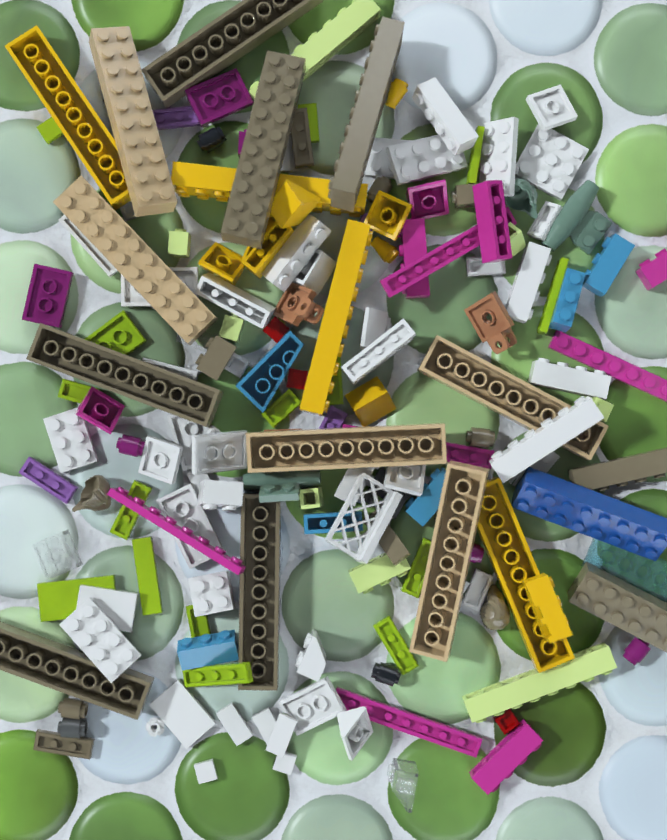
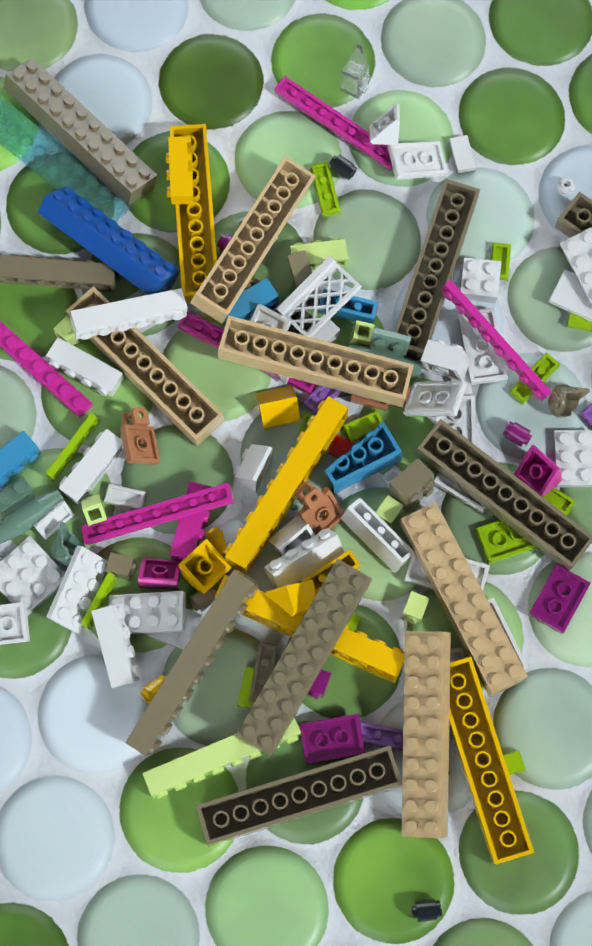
camera: 165 degrees left, 15 degrees down
(147, 575) = (536, 316): lime tile -> none
(160, 459) = (492, 411): white plate -> none
(182, 713) = (537, 190): white tile -> none
(205, 771) = (531, 136): white tile -> none
(208, 650) = (498, 233): dark azure brick -> none
(211, 139) = (352, 700): black brick -> none
(218, 675) = (495, 208): lime tile -> none
(222, 263) = (384, 575): yellow slope -> none
(234, 724) = (493, 167): white tile -> none
(276, 329) = (345, 498): red tile -> none
(281, 734) = (452, 144): white tile -> none
(286, 763) = (457, 123): white tile -> none
(313, 658) = (405, 197): white slope -> none
(378, 352) = (256, 436): white fence -> none
(414, 579) = (281, 247): lime tile -> none
(477, 590) = (234, 213): white tile -> none
(480, 437) = (186, 341): dark tan brick -> none
(492, 221) = (107, 525): dark pink brick -> none
(494, 611) = (225, 190): dark tan hair -> none
(506, 757) = (258, 69): dark pink brick -> none
(507, 721) = (247, 98): red tile -> none
(533, 685) = (218, 119): yellowish green brick -> none
(567, 300) = (60, 436): dark azure brick -> none
(636, 650) = (112, 118): magenta brick -> none

